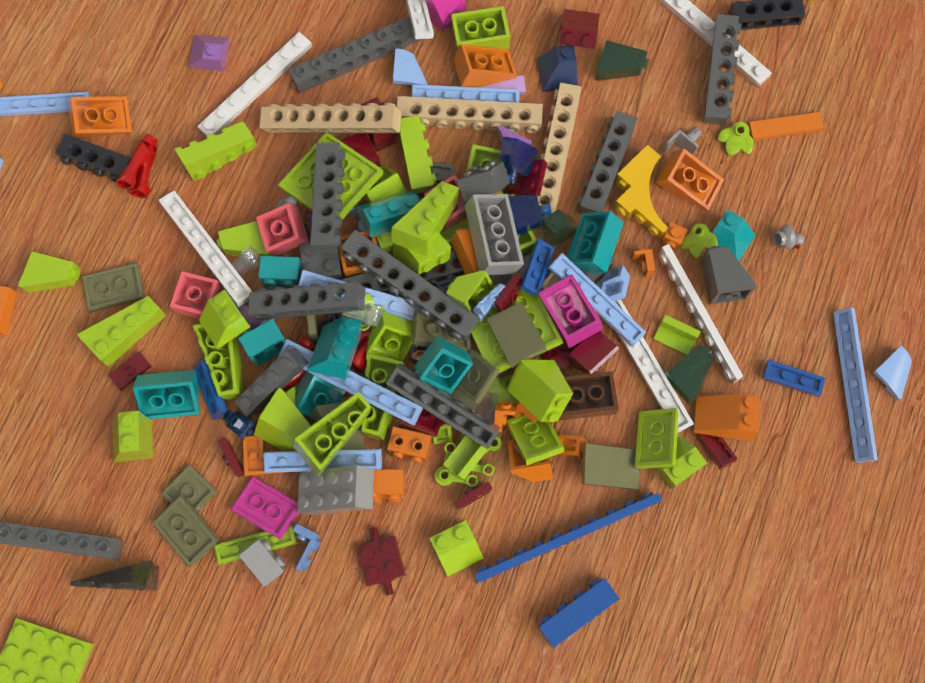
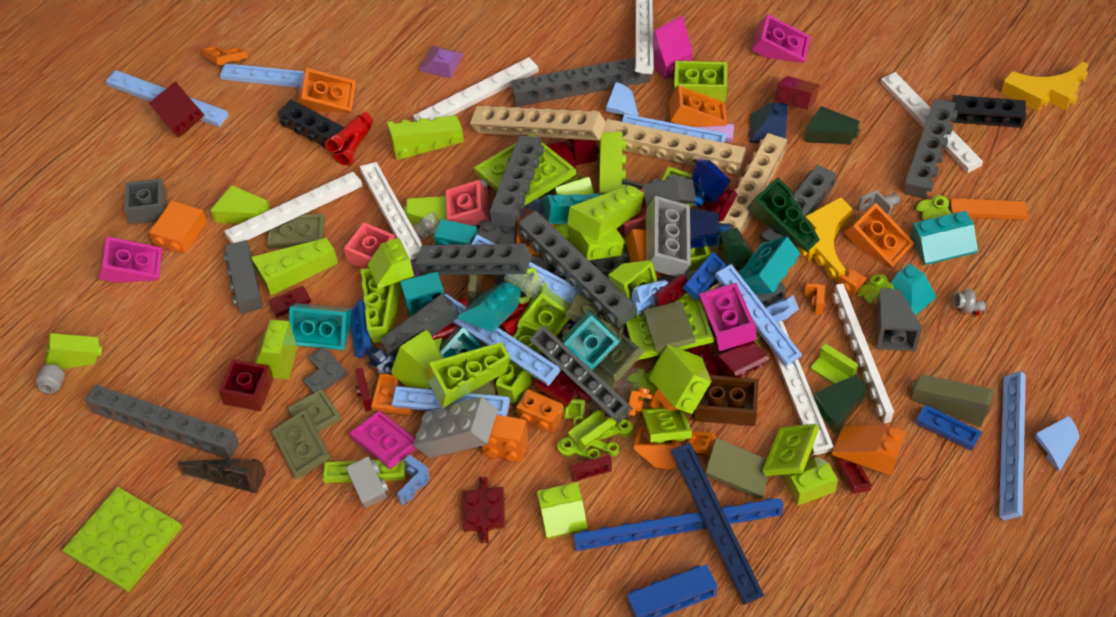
camera: 15 degrees right, 20 degrees down
(74, 353) = (243, 277): none -> dark grey brick
(103, 264) = (293, 208): none -> white plate
(113, 480) = (246, 385): none -> dark red brick
(191, 443) = (328, 371): none -> dark grey plate
(594, 177) = (782, 214): none -> dark green wedge
(605, 533) = (717, 524): none -> dark blue tile
(752, 169) = (944, 237): none -> slope
(794, 348) = (953, 398): none -> olive slope

